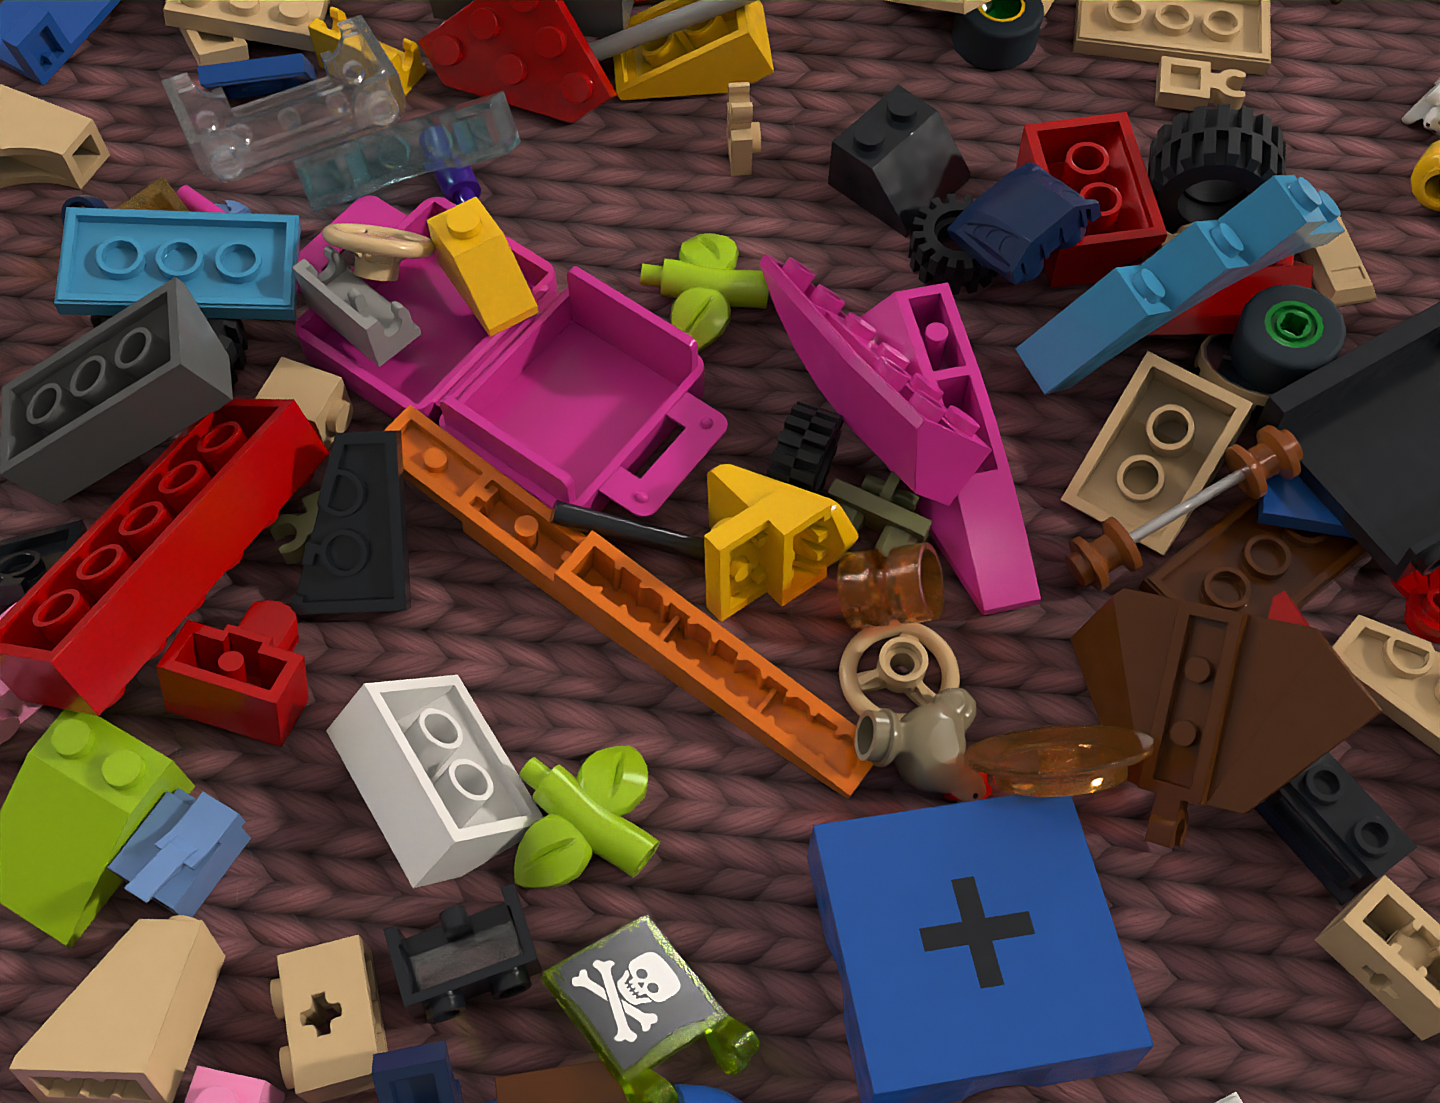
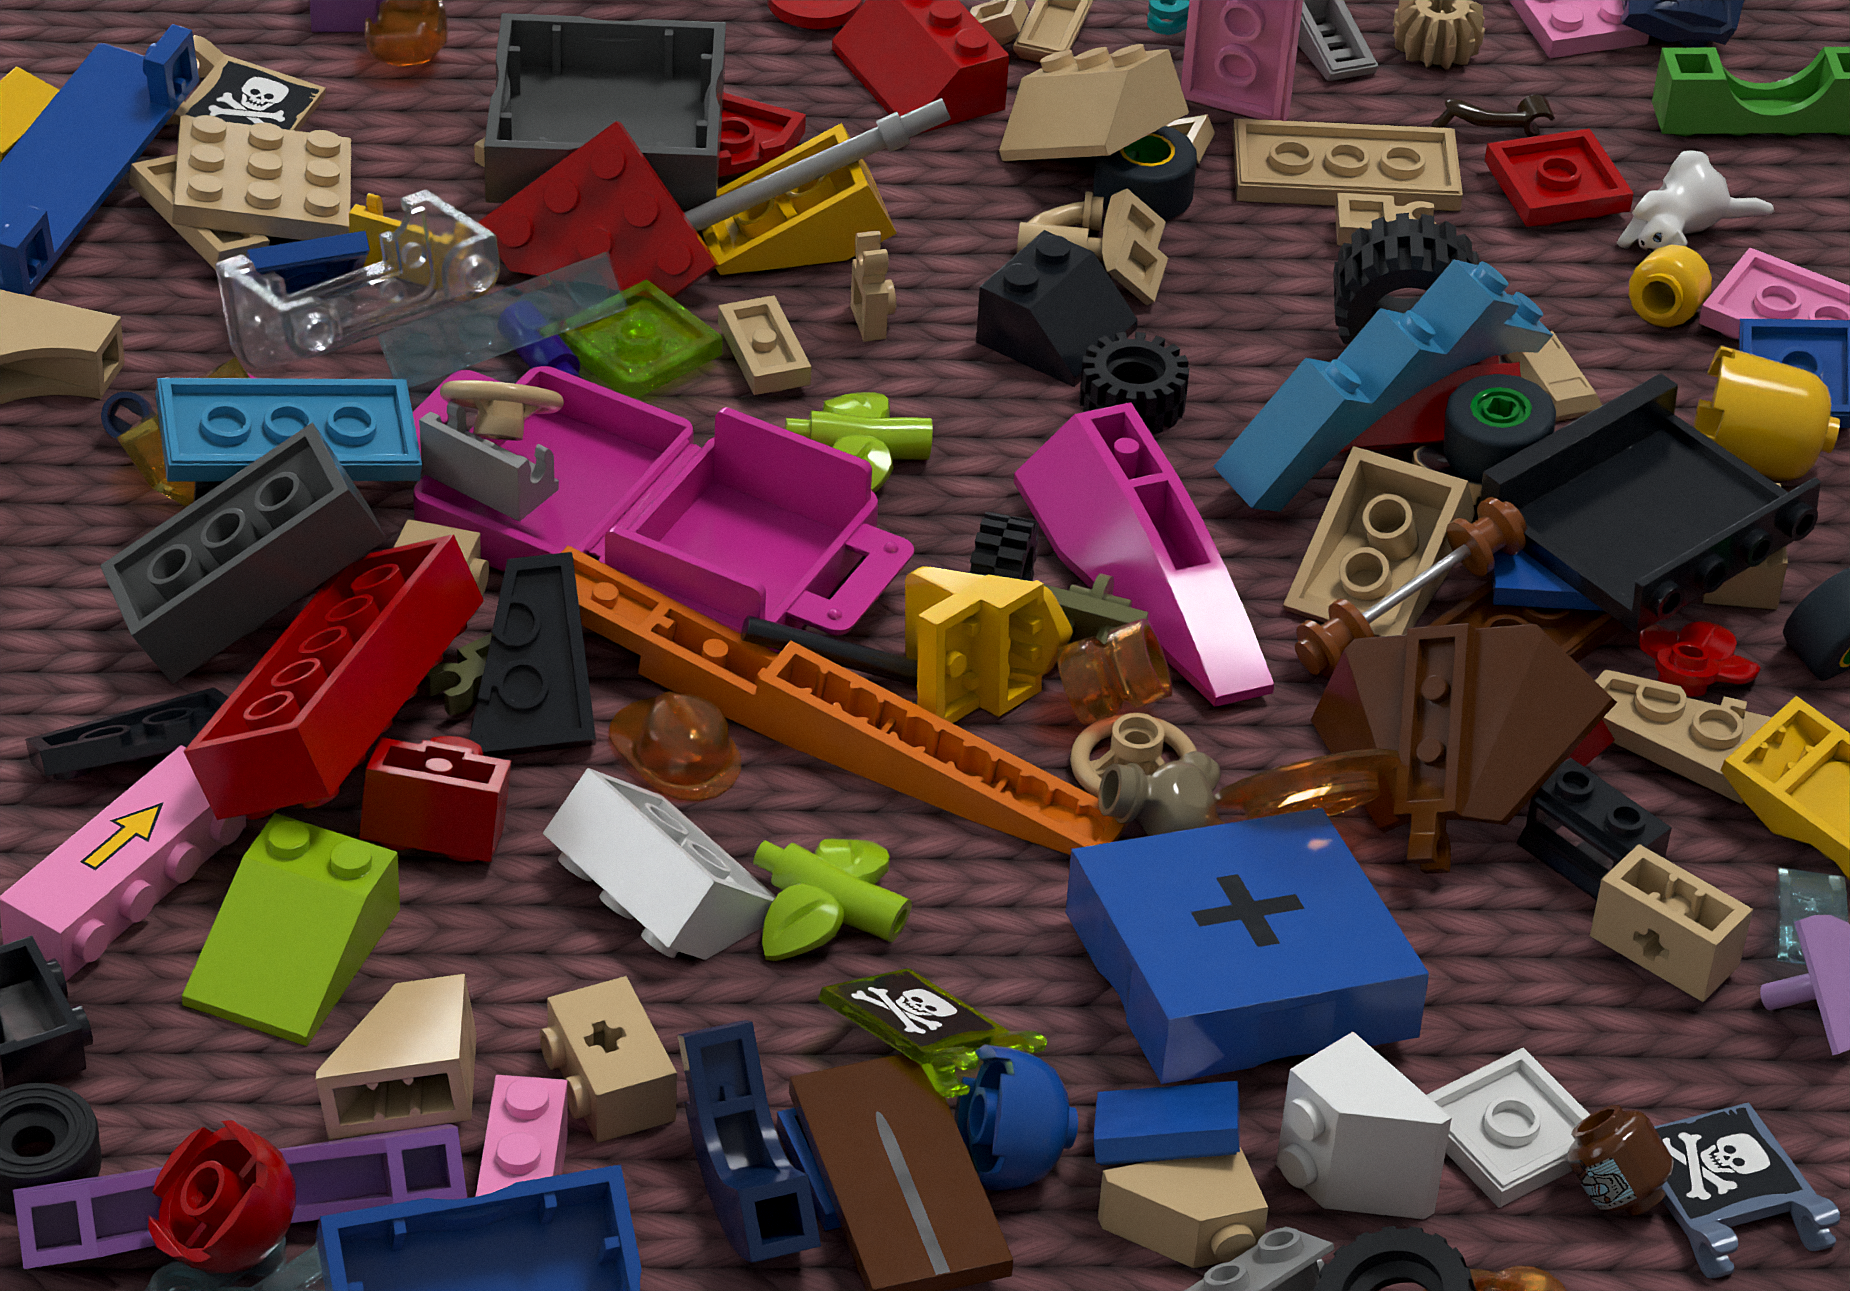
camera: 10 degrees left, 20 degrees down
(181, 851) = (411, 940): medium blue piece -> none
(464, 959) = (772, 998): black window -> none
(481, 266) = (618, 415): yellow slope -> none
(482, 617) = (678, 745): none -> clear orange piece
(542, 171) = (644, 343): none -> clear neon green plate
(641, 179) = (764, 345): none -> tan plate
(868, 384) = (1071, 495): dark pink wedge -> none
(925, 88) = (1061, 218): none -> tan plant
(974, 98) = (1132, 244): none -> tan slope
(1023, 222) = (1202, 342): dark blue slope -> none
(1103, 164) = (1263, 316): red slope -> none
(1357, 50) = (1558, 177): none -> red plate

